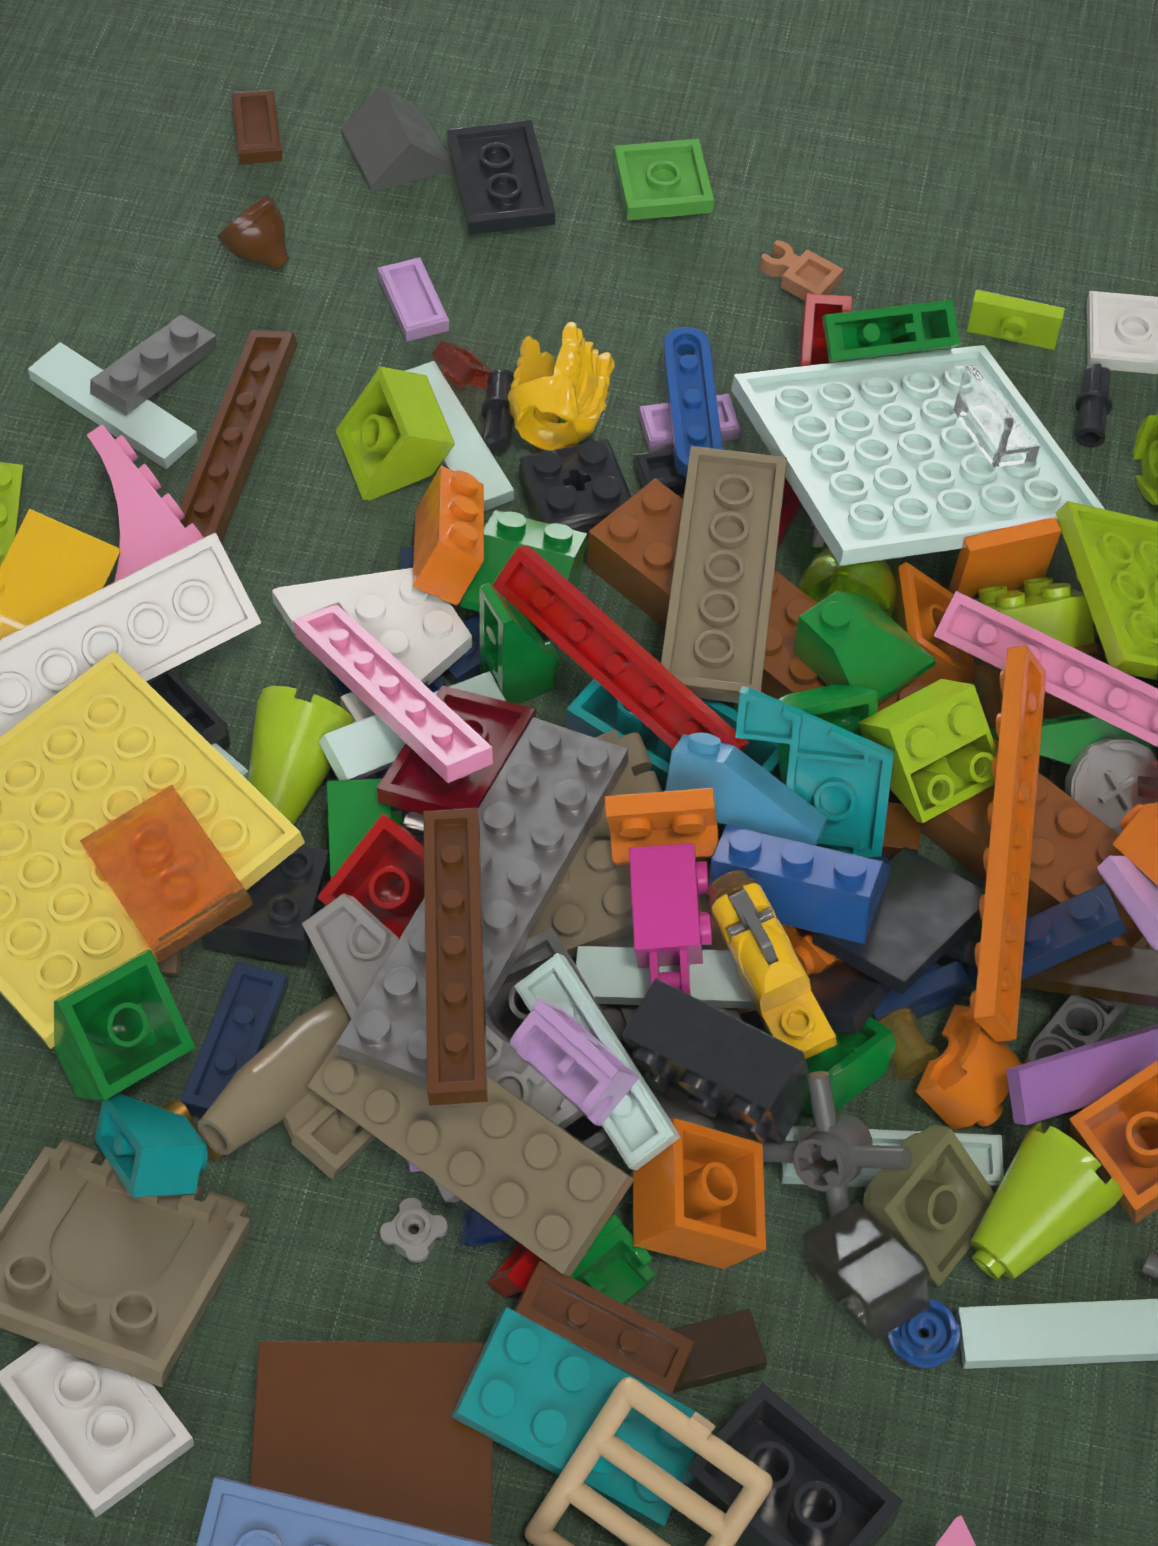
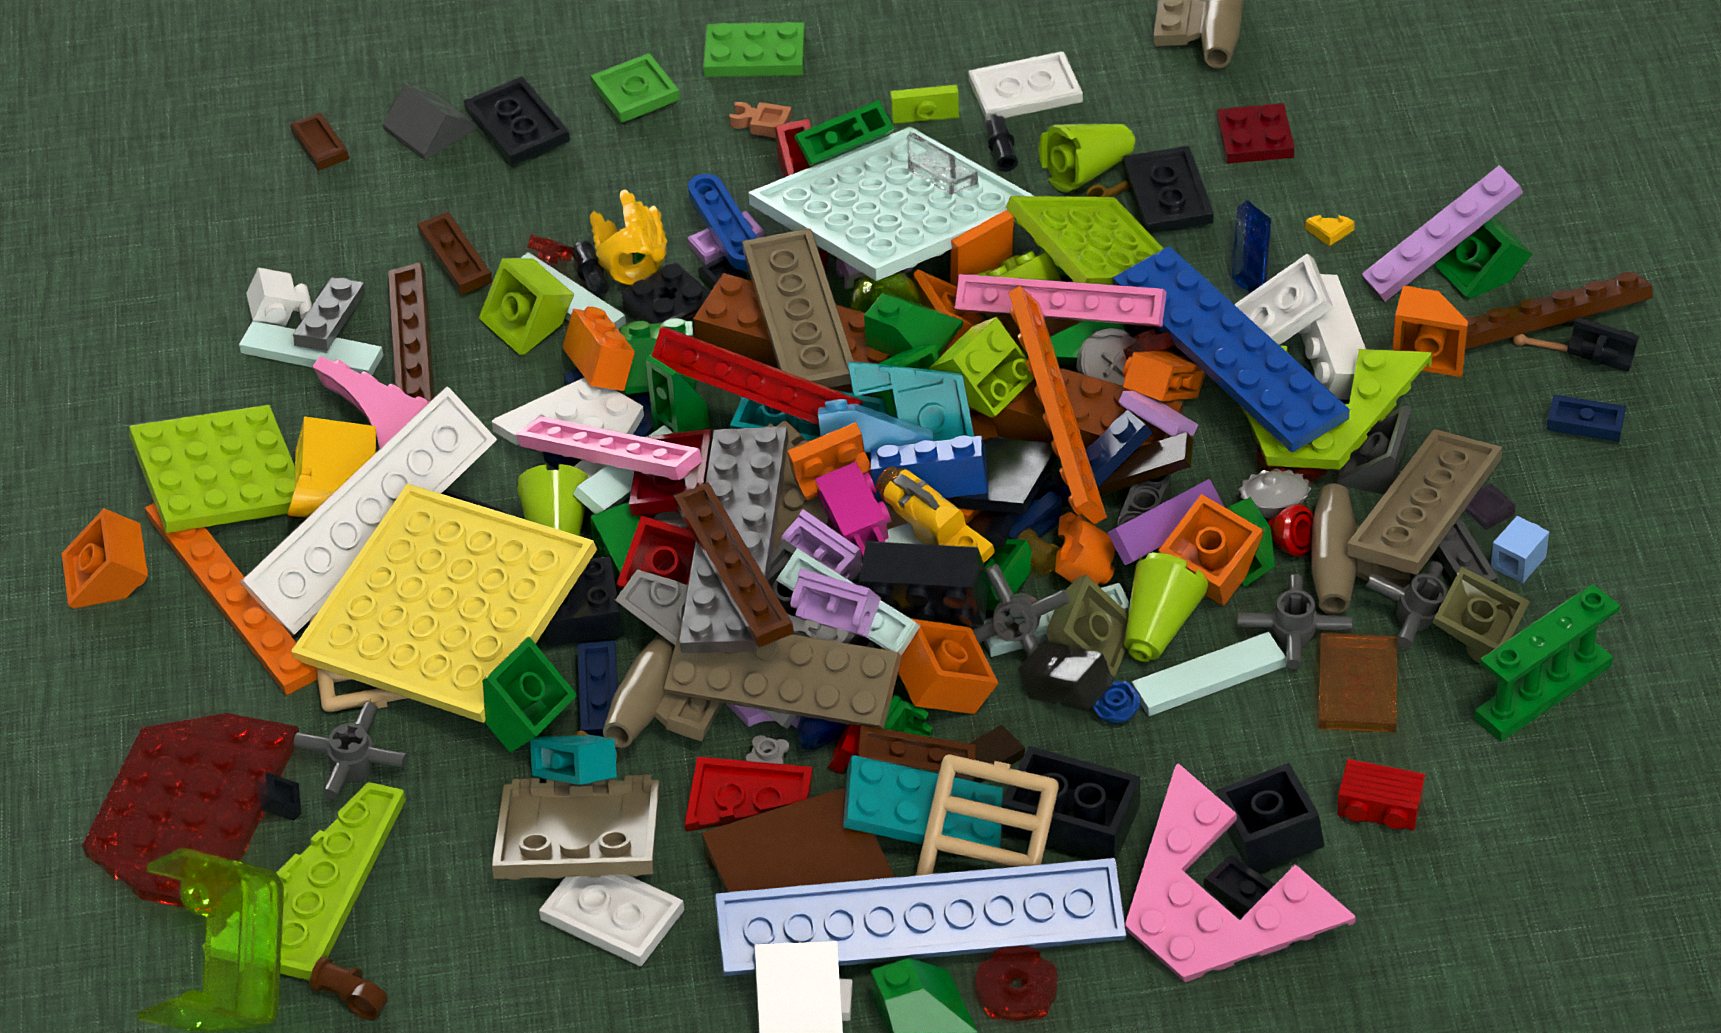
camera: 15 degrees left, 10 degrees down
(97, 321) = (275, 298): none -> white brick
(166, 873) = (514, 592): clear orange tile -> none
(258, 235) = (362, 209): reddish brown helmet -> none
(344, 331) = (454, 253): none -> reddish brown plate
(355, 1282) = (740, 789): none -> red wing
(413, 299) = (492, 219): lavender tile -> none
(601, 955) = (824, 545): none -> lavender hinge
(833, 174) = (754, 49): none -> bright green plate

